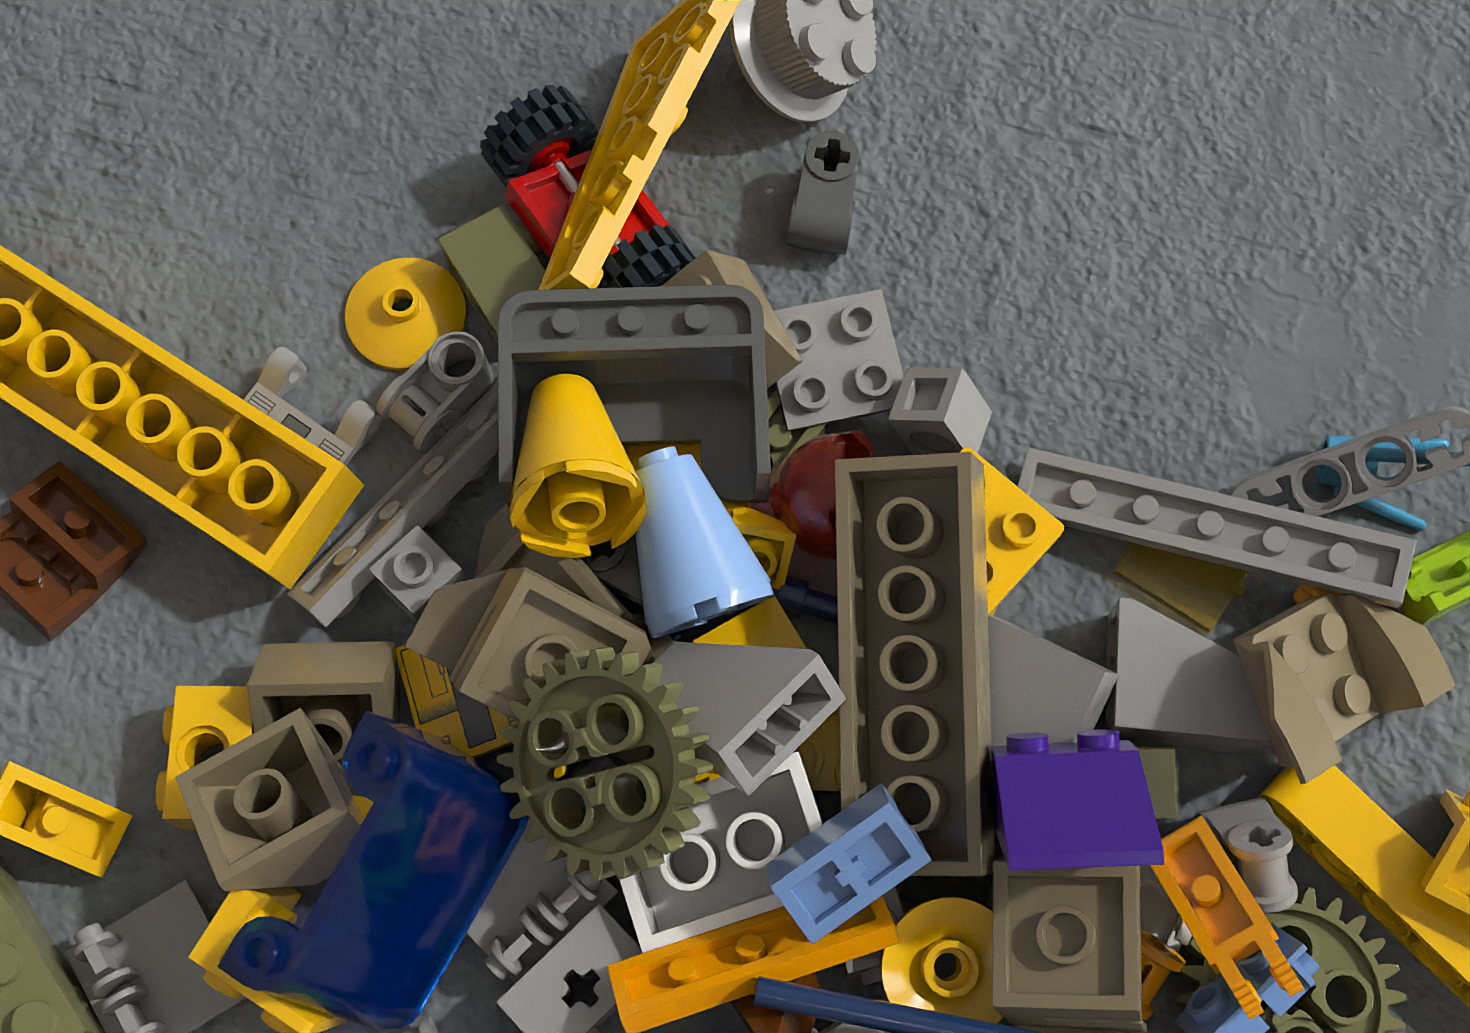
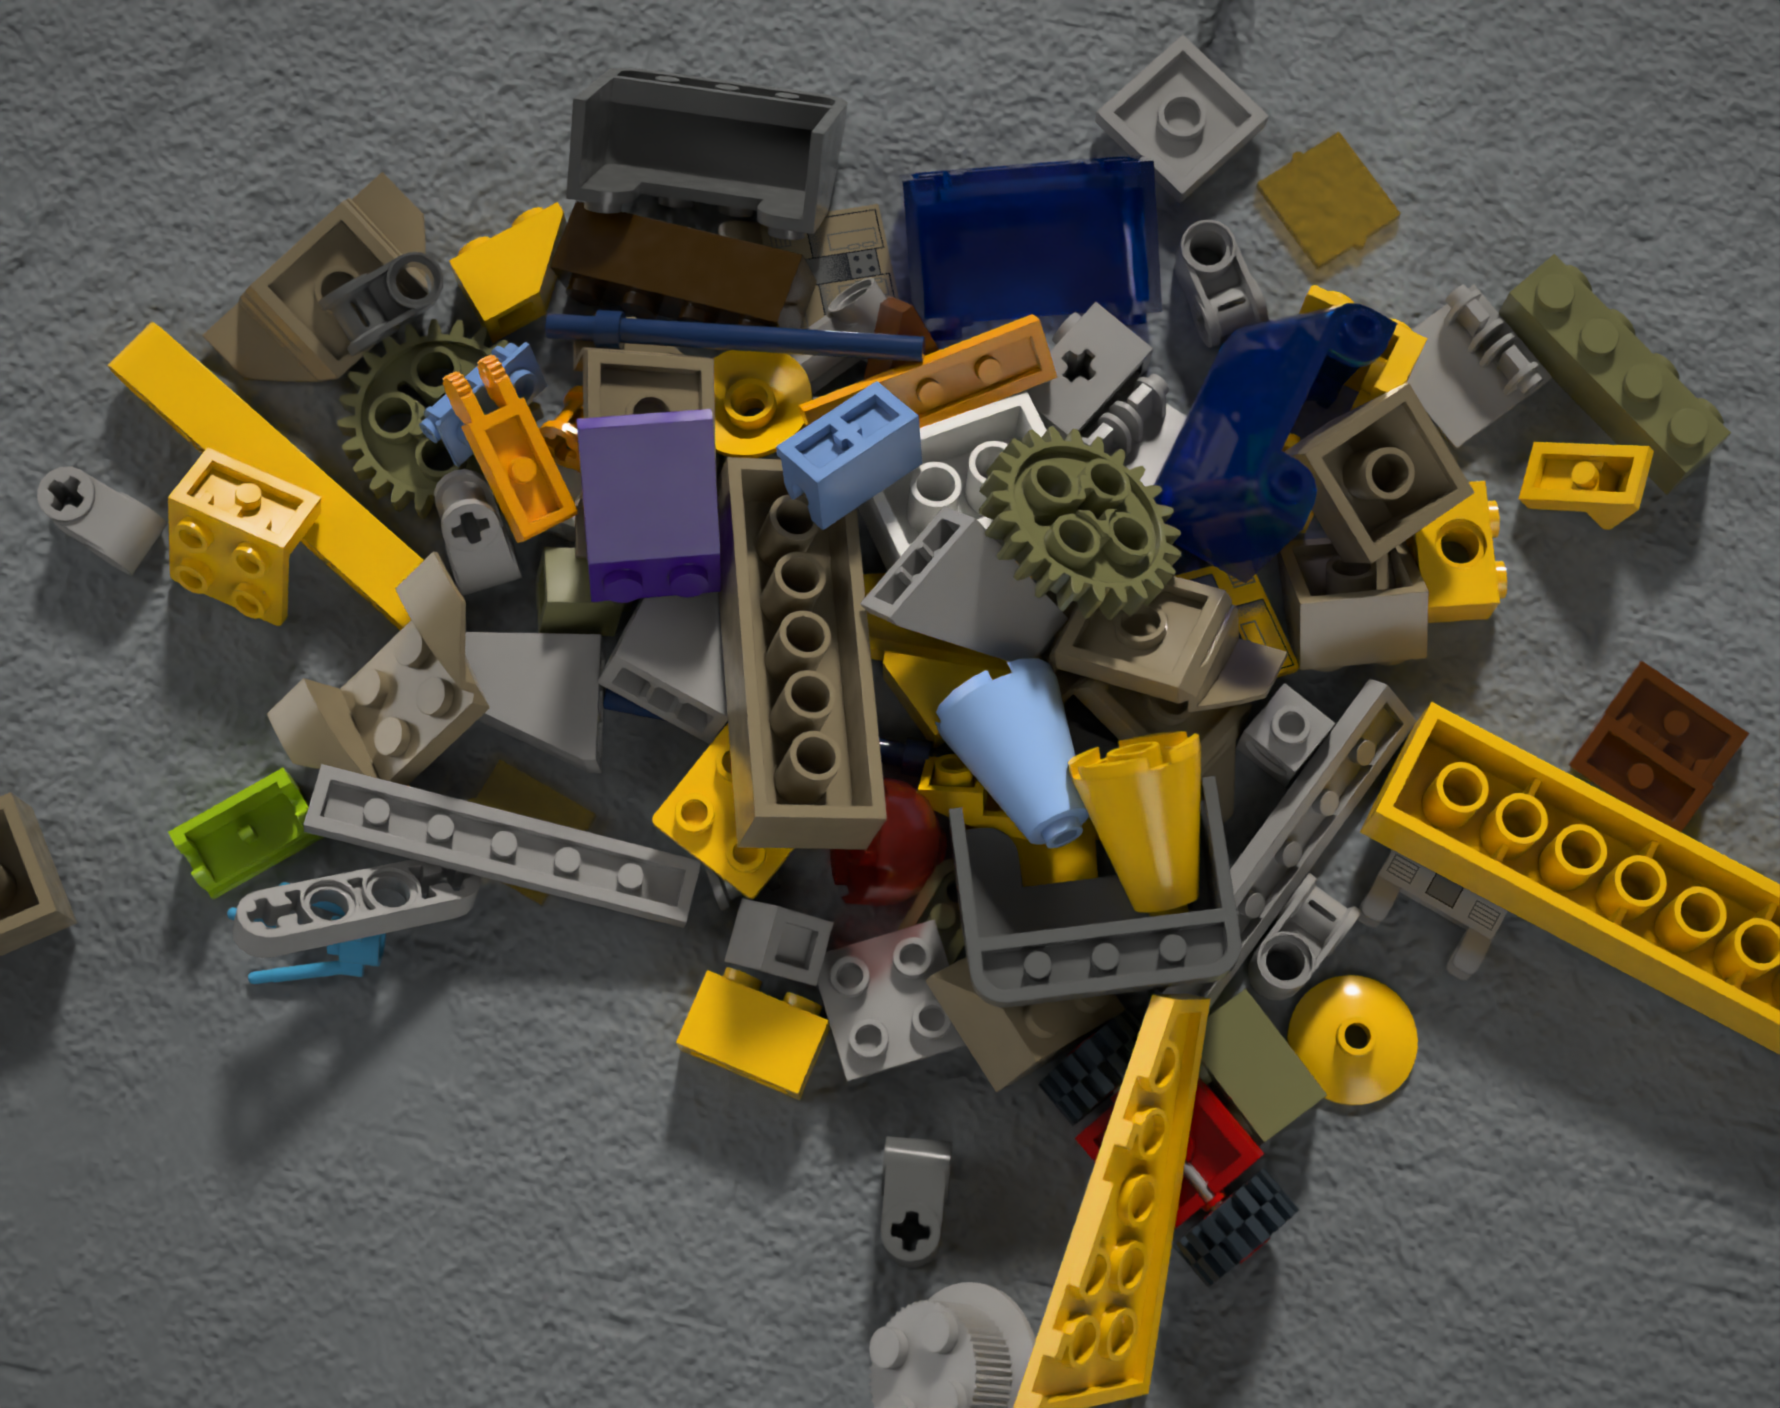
camera: 175 degrees right, 5 degrees up
(967, 333) = (754, 1032): none -> yellow brick

